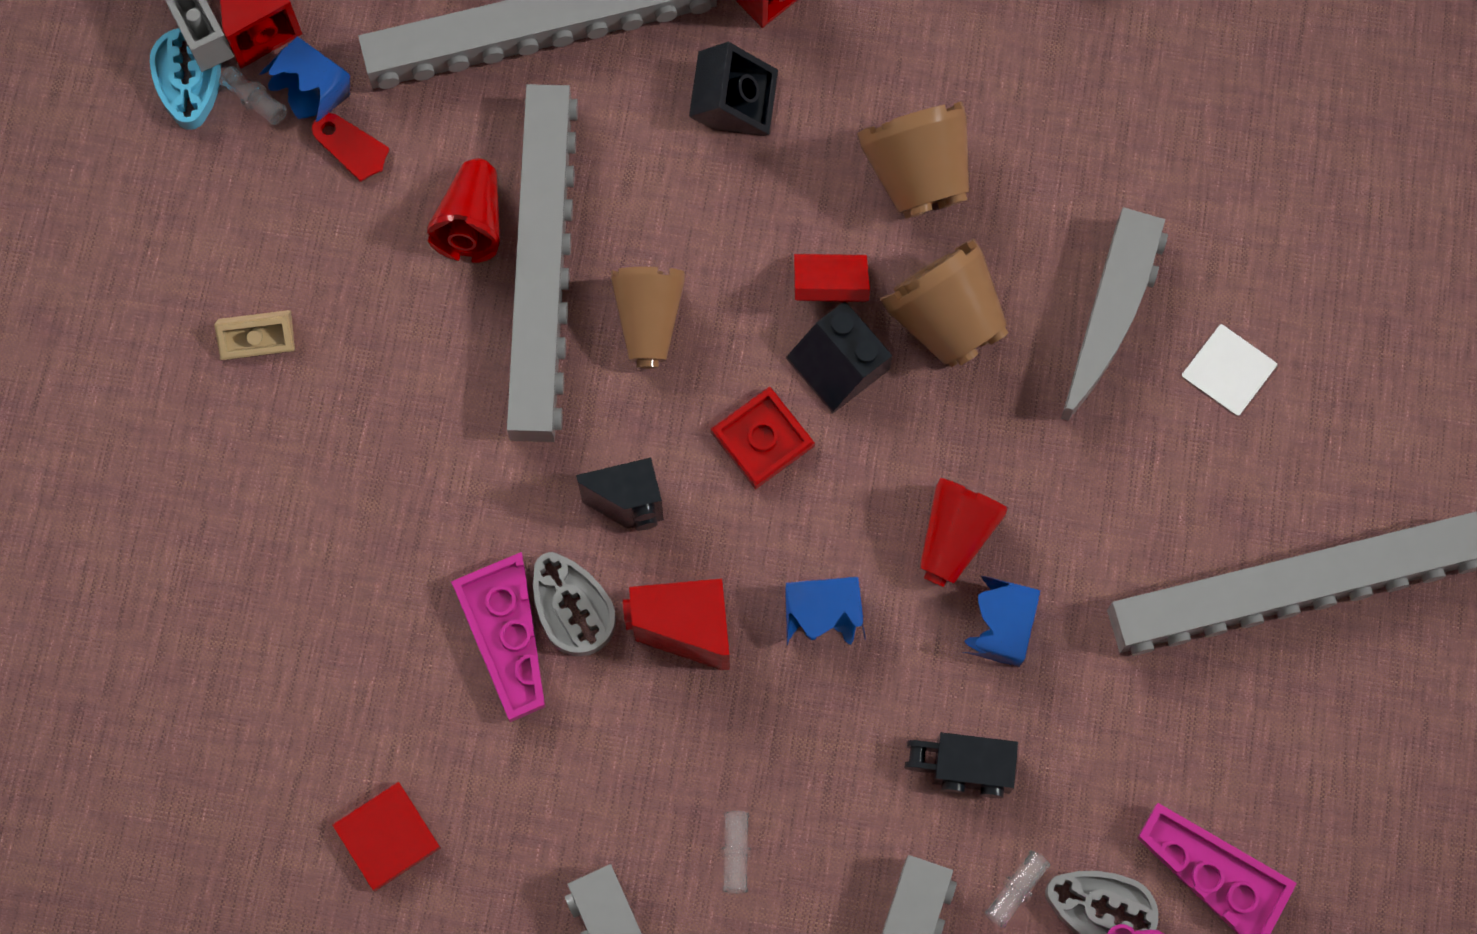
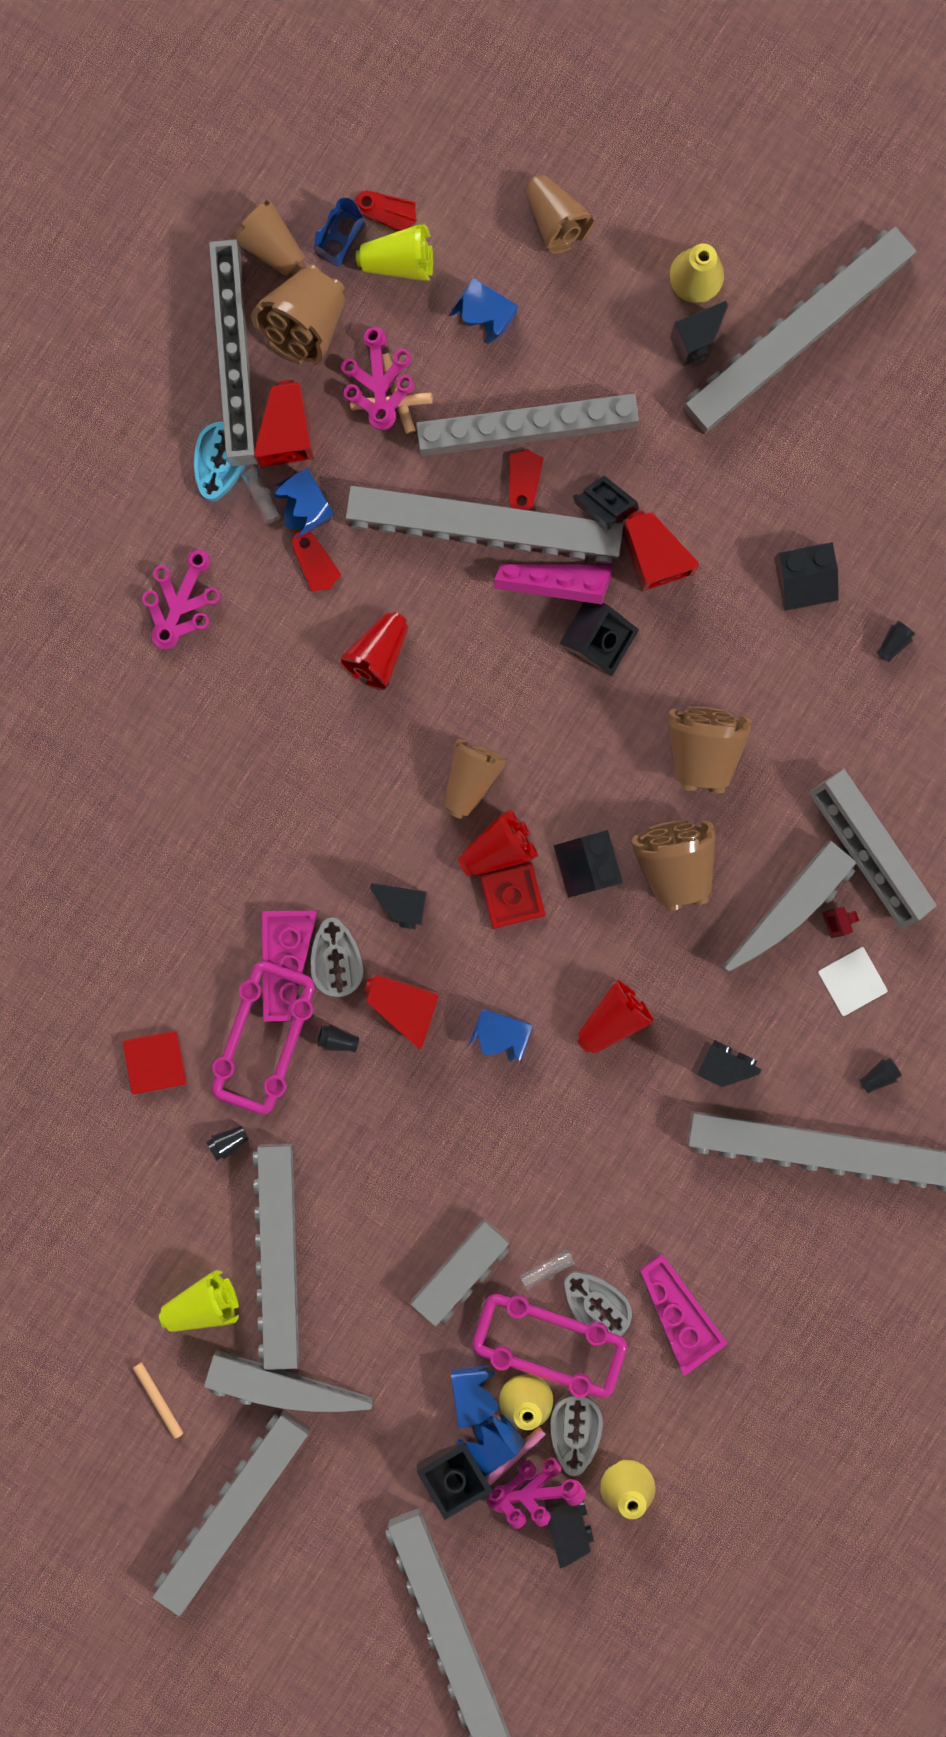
camera: 25 degrees right, 15 degrees up
(201, 256) = (179, 603): none -> dark pink plant
(255, 335) = (197, 675): tan slope -> none
(523, 901) = (226, 1142): none -> black cone
(541, 264) = (413, 705): light grey brick -> none
(558, 796) = (301, 1010): none -> dark pink bar
(614, 705) = (336, 1039): none -> black cone
(654, 48) = (562, 581): none -> dark pink wing
(718, 380) = (499, 847): none -> red cone
(735, 852) = (375, 1169): clear pin -> none
(831, 277) = (607, 805): red tile -> none
(967, 763) = (551, 1176): black brick -> none
(1010, 615) = (619, 1094): blue piece -> none
(1120, 525) = (723, 1068): none -> black slope
(1178, 198) = (872, 849): none -> light grey brick
(1178, 301) = (839, 921): none -> dark red tile
(1321, 463) = (881, 1075): none -> black cone

